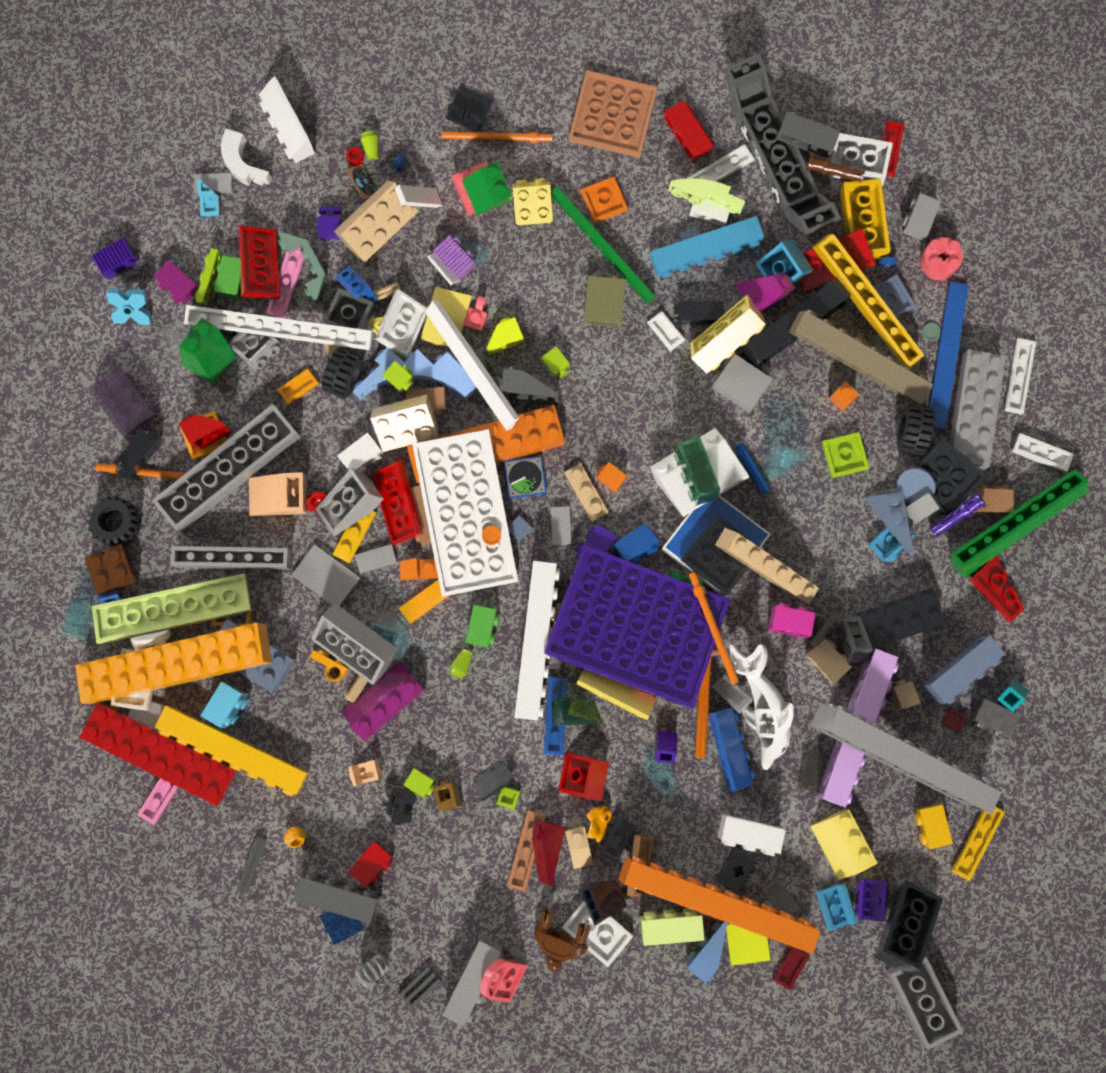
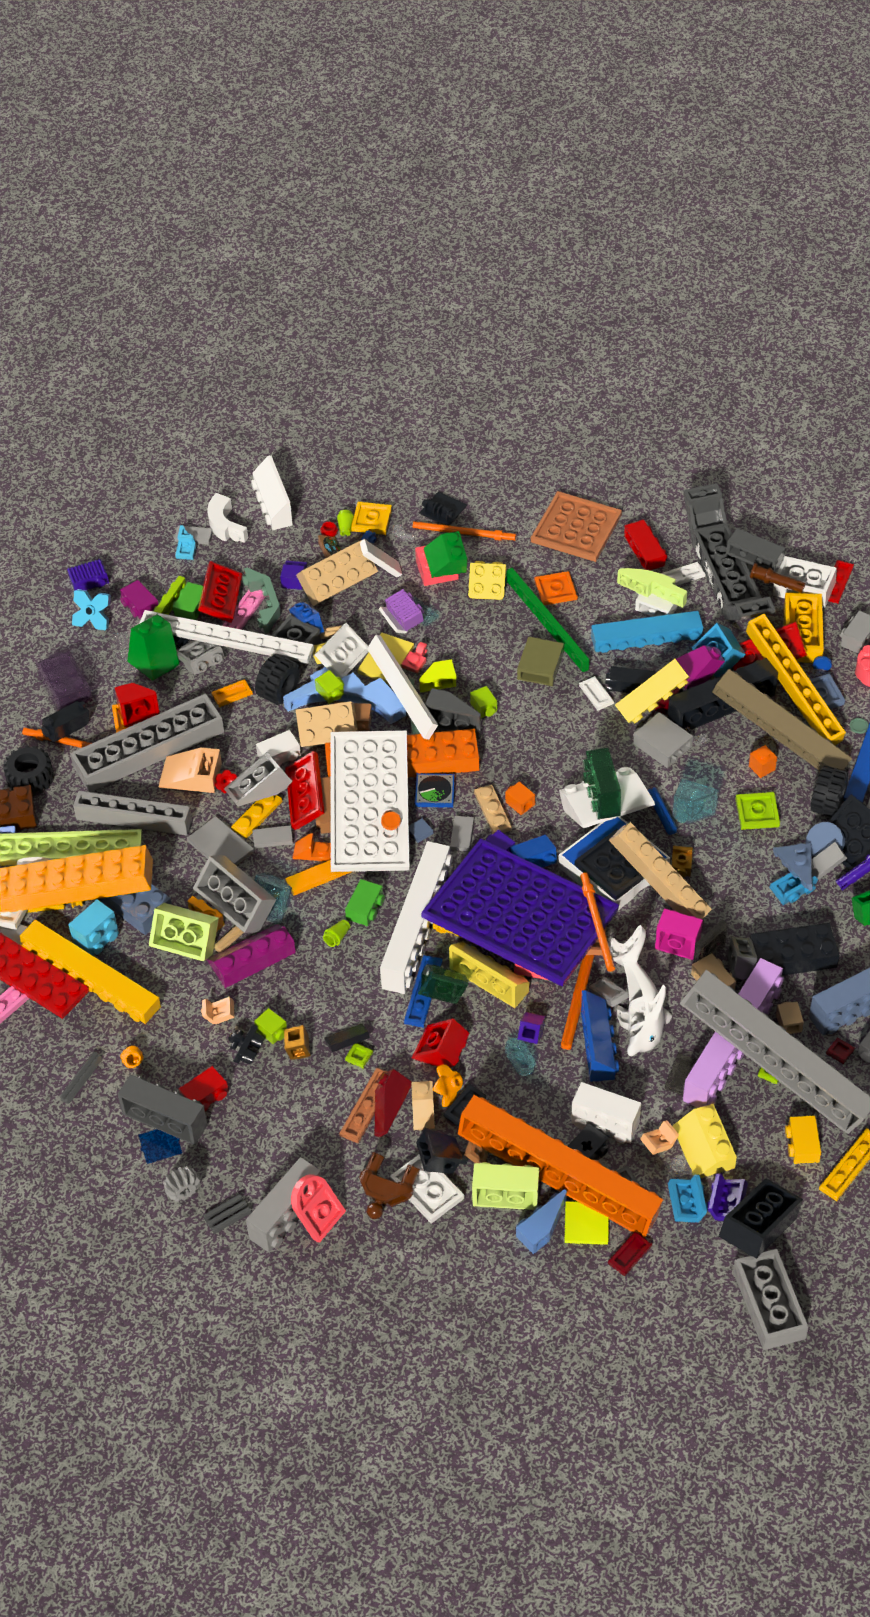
camera: 10 degrees right, 30 degrees down
(313, 695) = (183, 931): none -> yellowish green brick
(396, 134) = (371, 517): none -> yellow plate
(774, 524) = (682, 860): none -> pearl gold brick
(802, 846) = (660, 1139): none -> light nougat bracket

